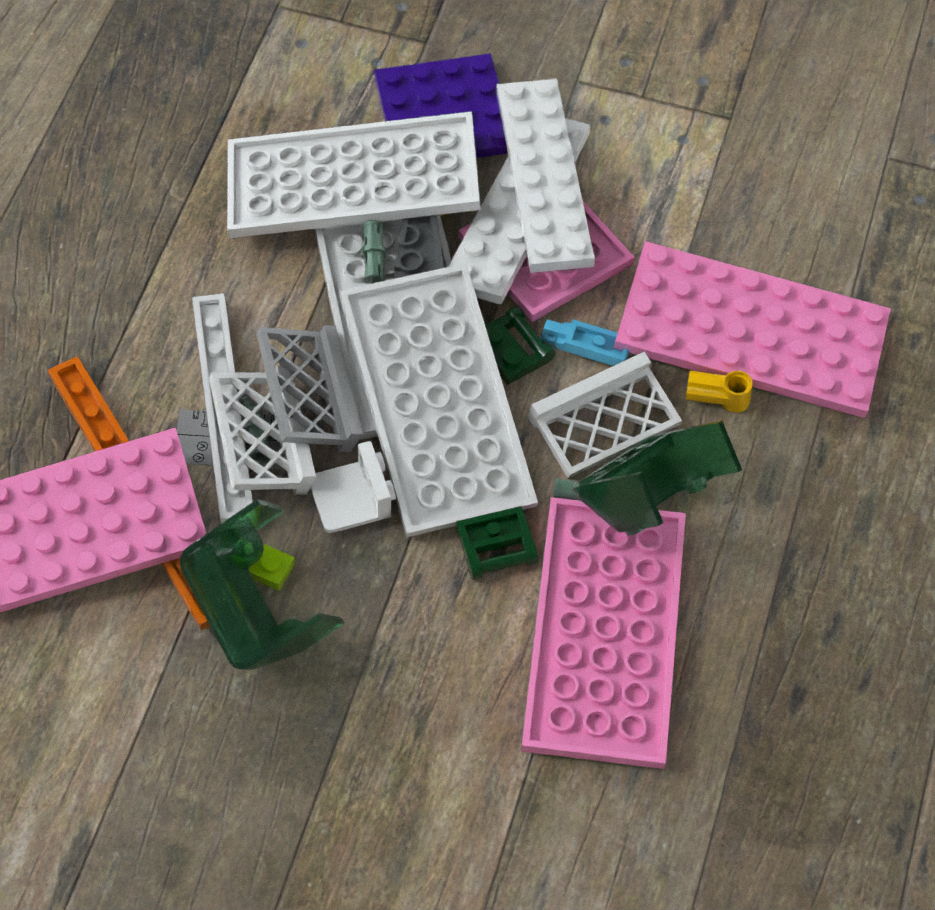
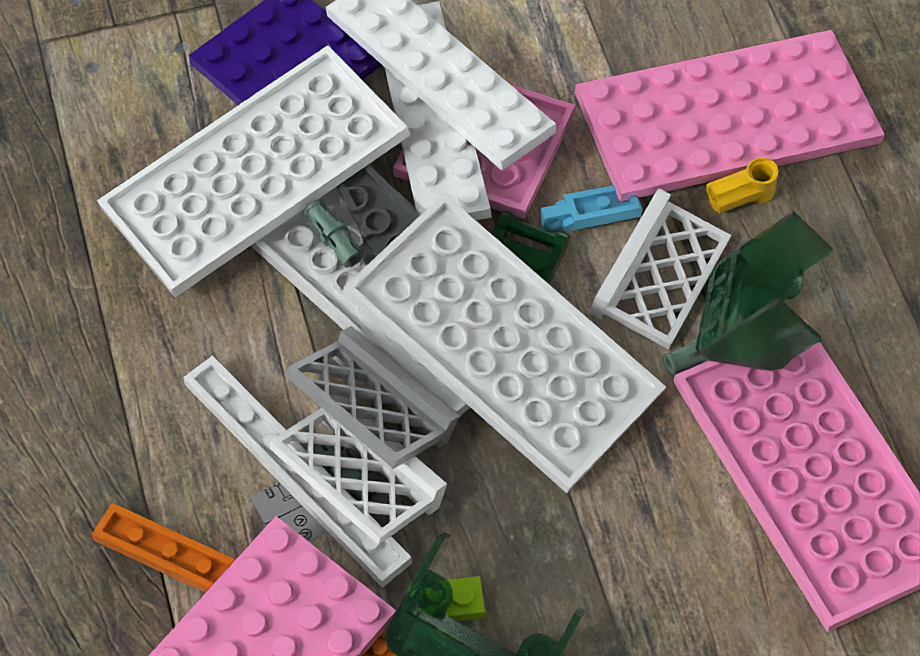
camera: 30 degrees left, 0 degrees up
(354, 492) = (489, 477): white bracket -> none
(492, 533) = (646, 439): dark green plate -> none

